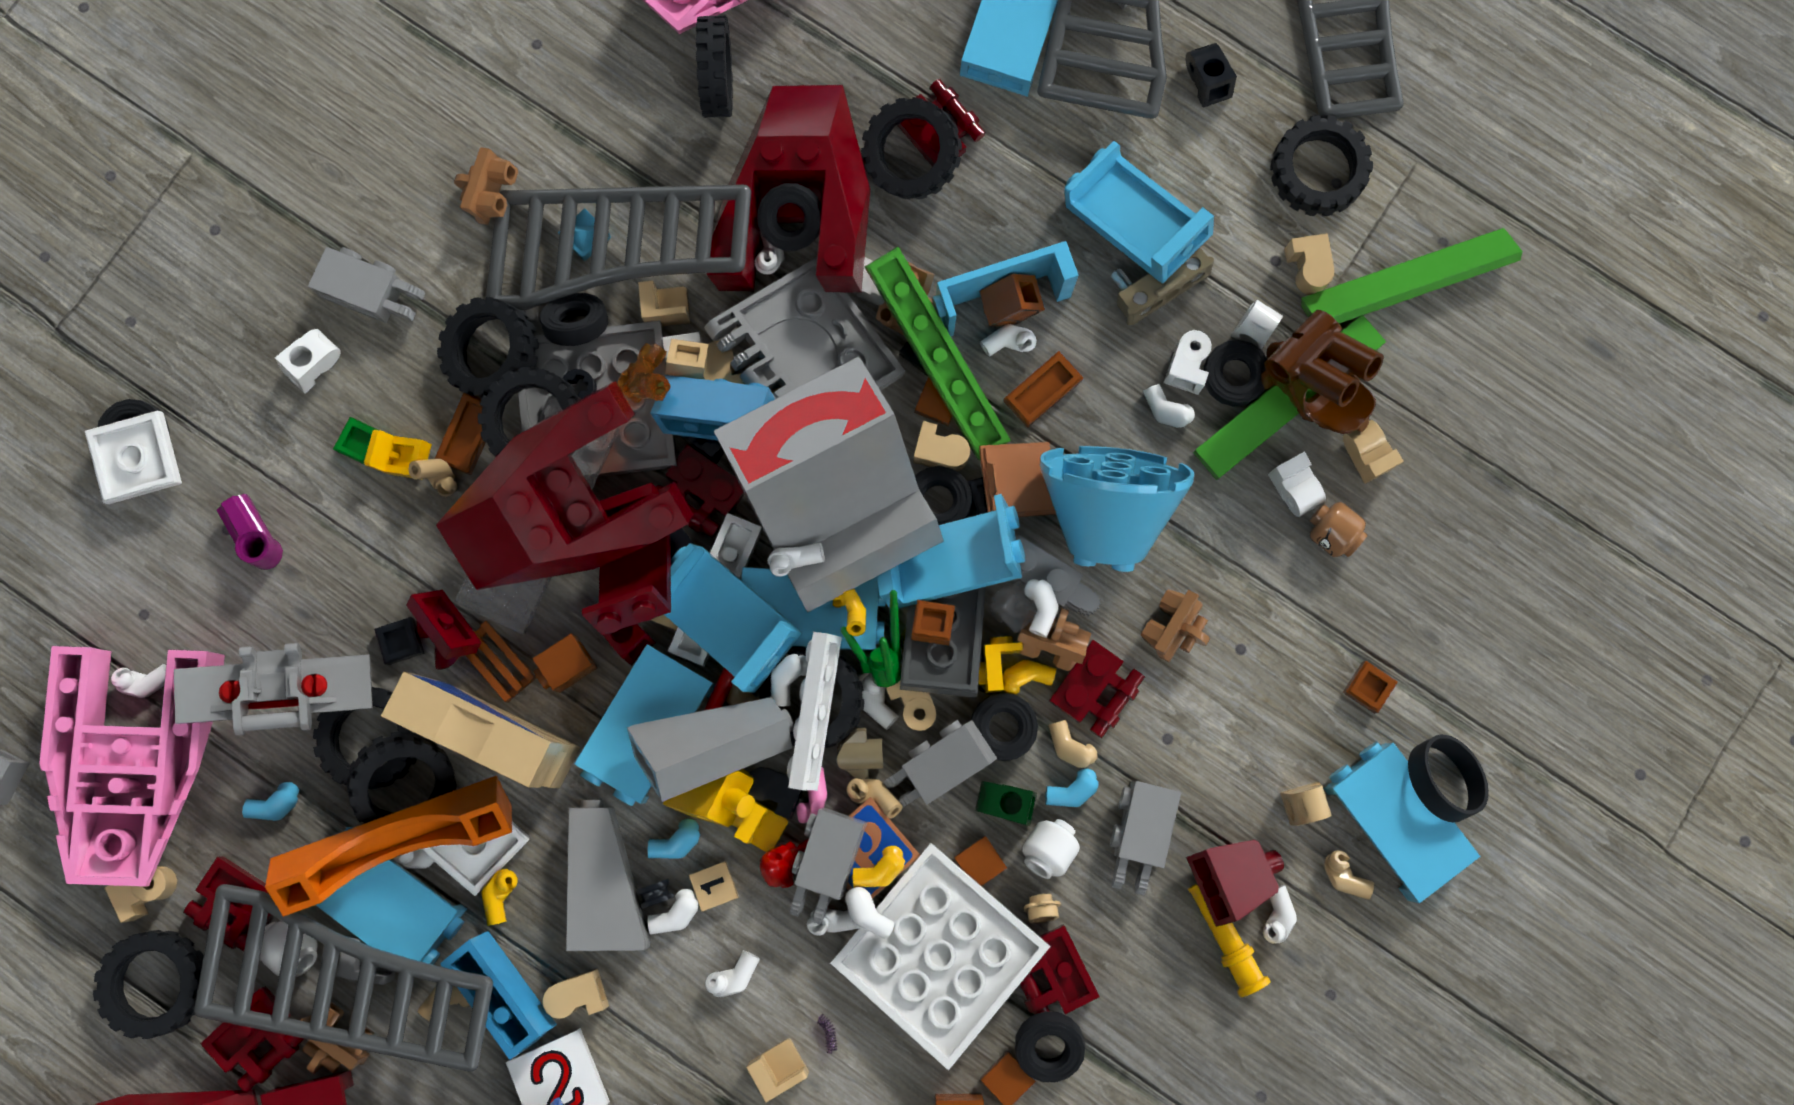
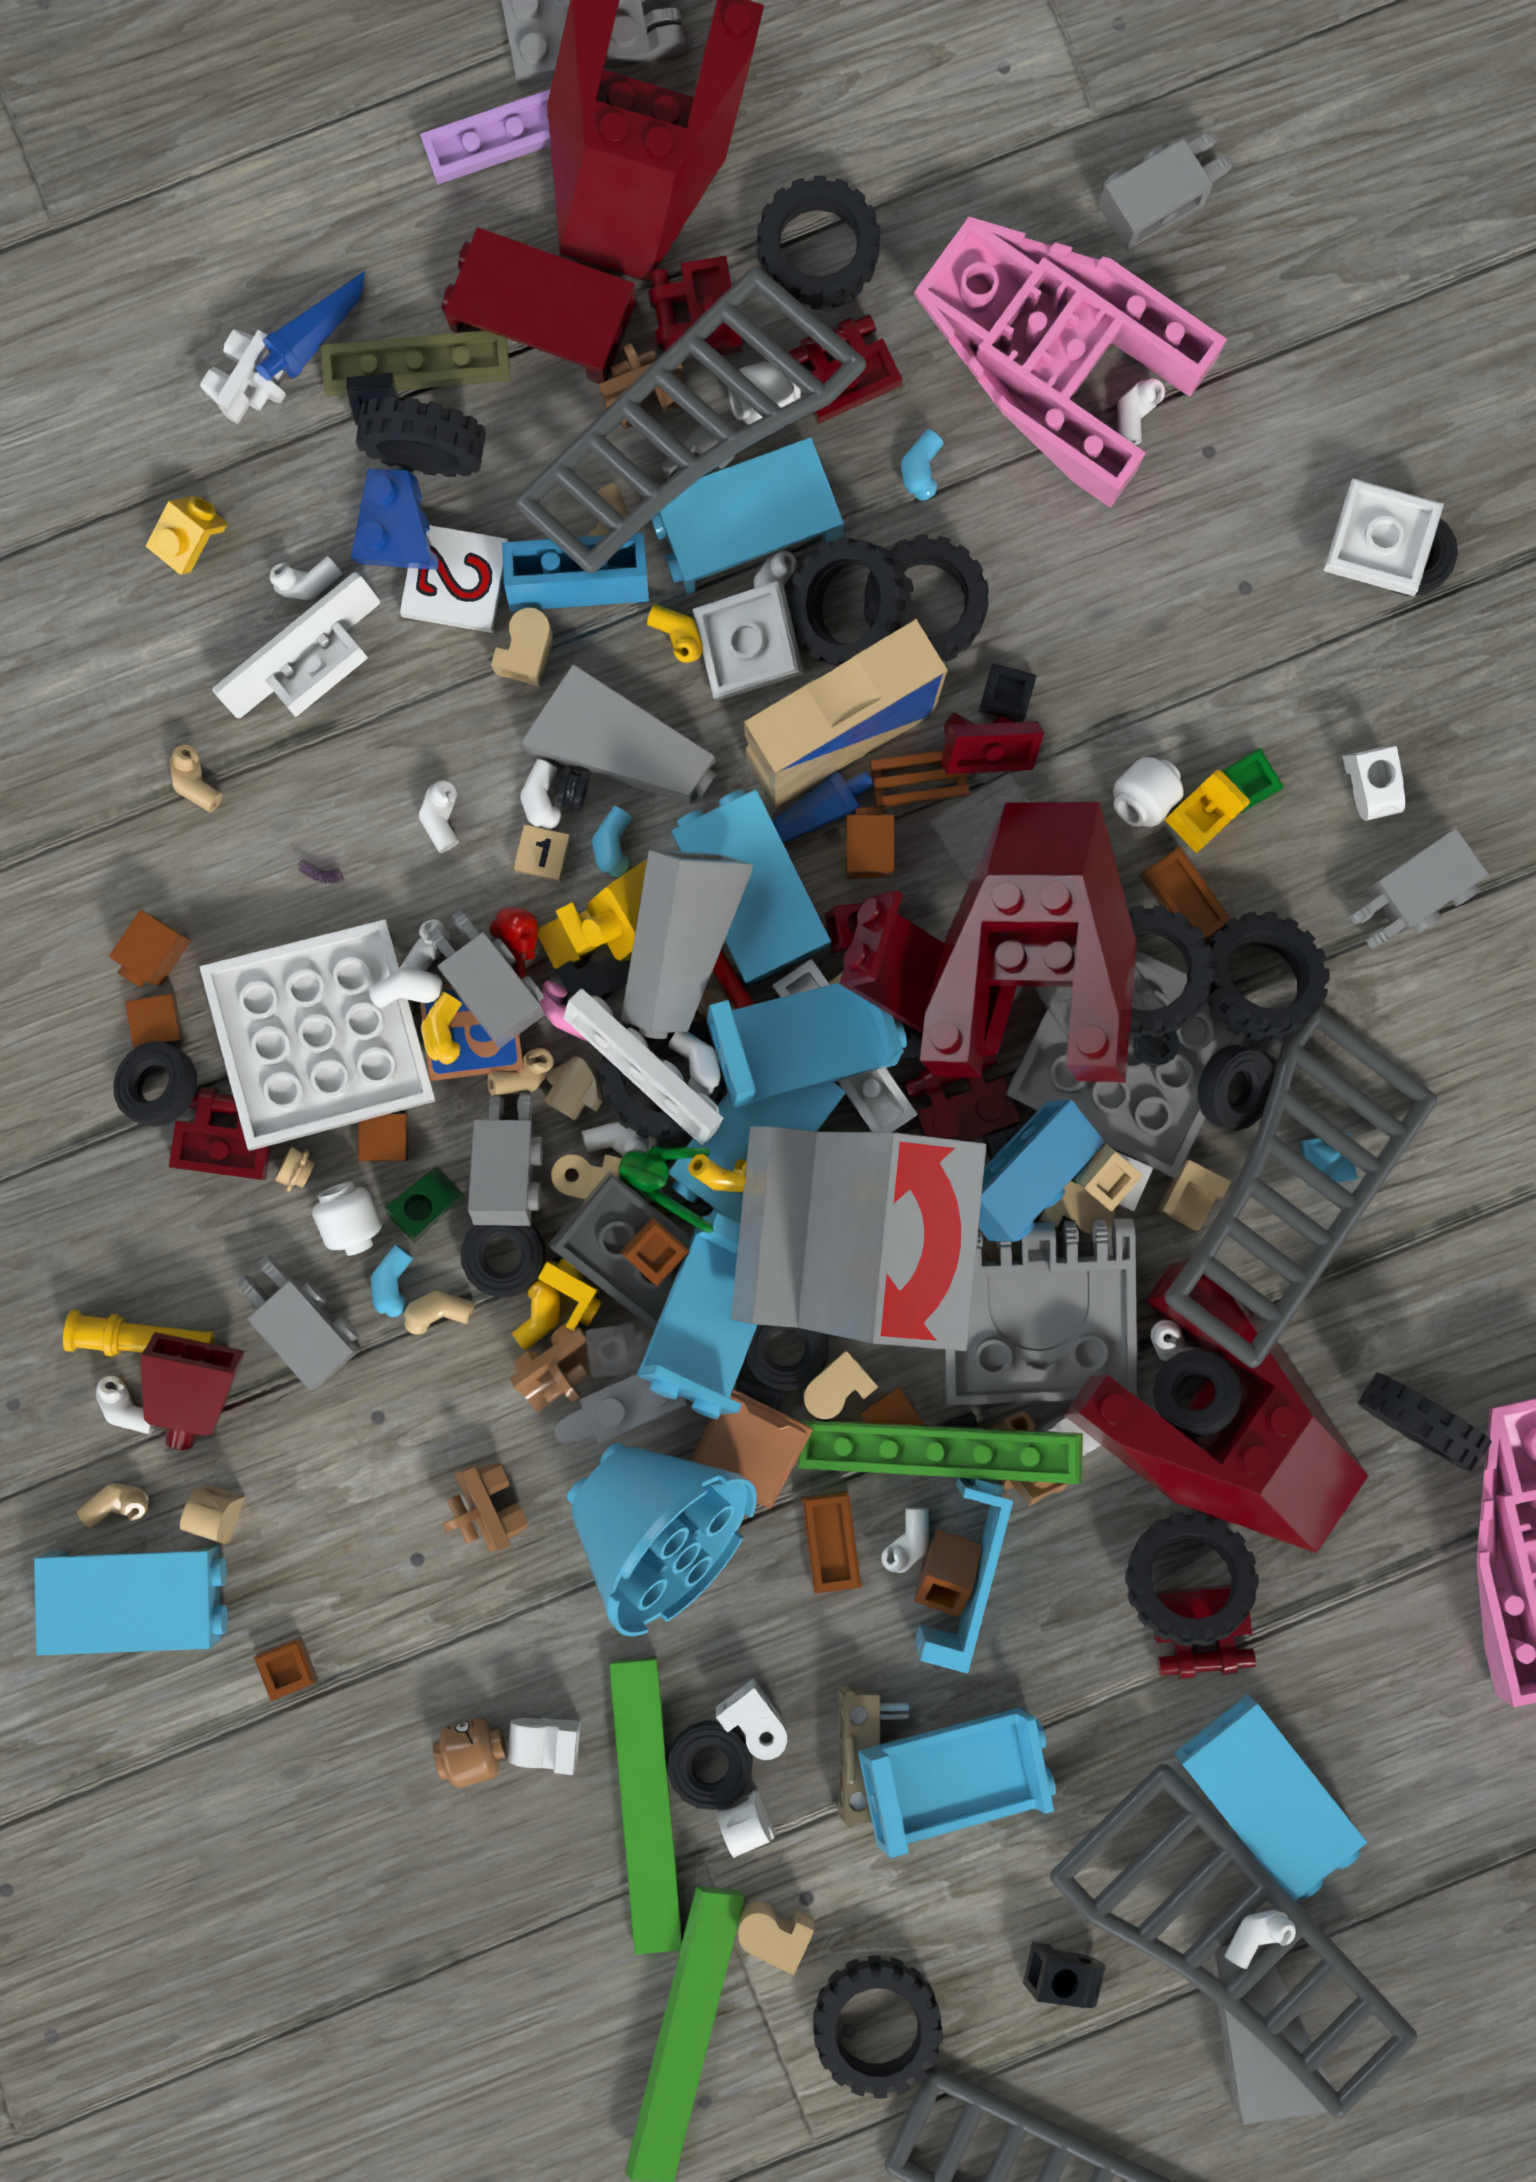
camera: 130 degrees right, 5 degrees up
(130, 900) = (911, 268): tan leg -> none
(248, 531) = (1227, 608): magenta piece -> none
(269, 682) = (1043, 538): light grey piece -> none
(320, 868) = (815, 468): orange arch -> none
(409, 502) = (1148, 792): none -> white head
(437, 473) = (1162, 839): tan arm -> none
(482, 186) = (1453, 1084): medium nougat hips -> none
(556, 714) = (822, 805): none -> blue bar
(638, 379) = (1122, 1112): clear orange bar -> none
(777, 1069) = (318, 800): tan panel -> none
(784, 559) = (814, 1134): white arm -> none
(1046, 606) = (593, 1381): white arm -> none
(1088, 680) = (488, 1368): dark red plate -> none
(1168, 412) = (717, 1658): white arm -> none
(1330, 365) = (638, 1863): reddish brown helmet -> none
(1371, 452) = (527, 1850): tan leg -> none
(1429, 792) = (134, 1712): black tyre -> none

